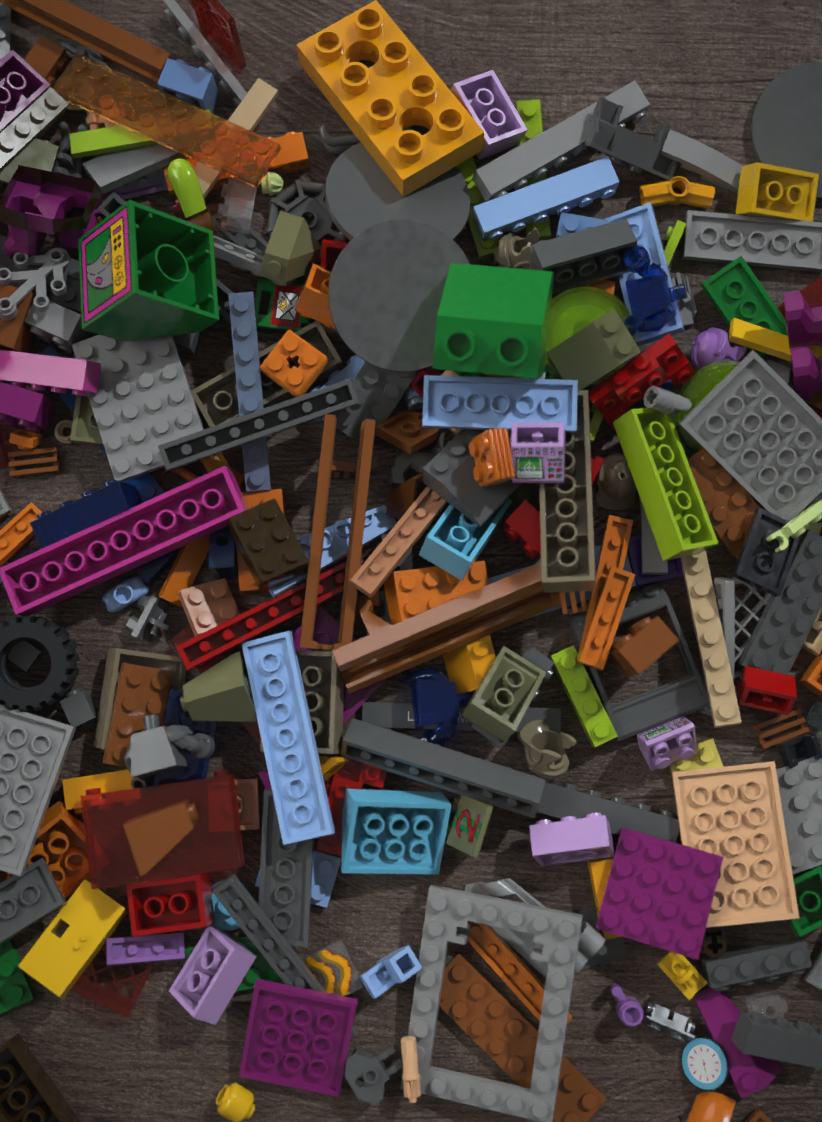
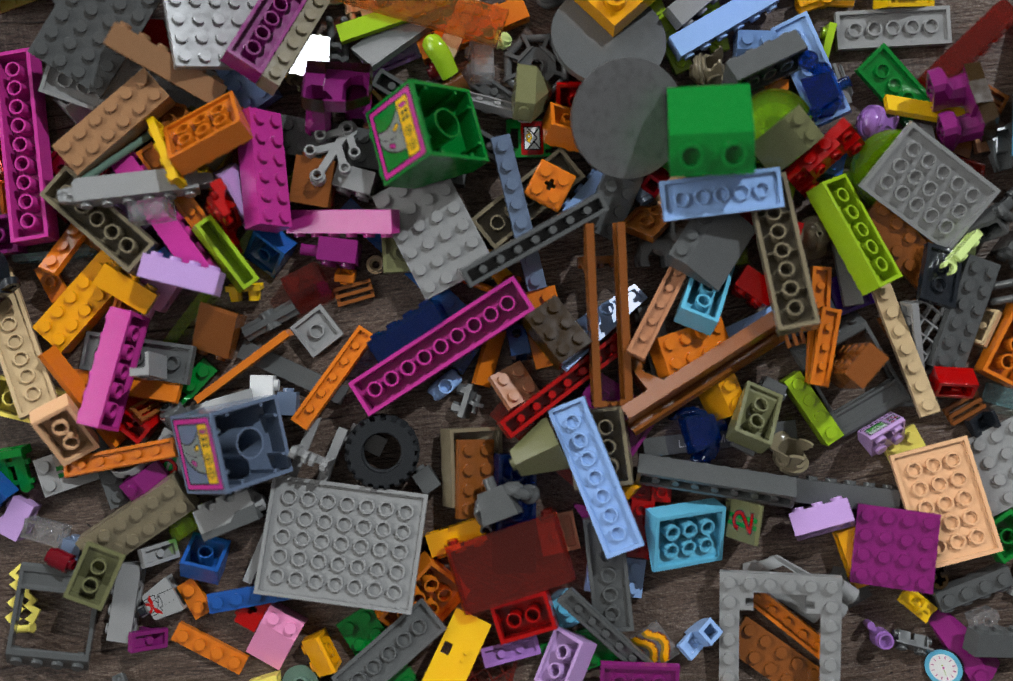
camera: 15 degrees left, 5 degrees up
(158, 832) = (514, 565): dark orange slope -> none
(404, 496) = (652, 275): reddish brown slope -> none
(492, 457) = (722, 238): orange brick -> none
(538, 452) = (758, 229): lavender slope -> none
(665, 401) = (846, 170): light grey hinge -> none

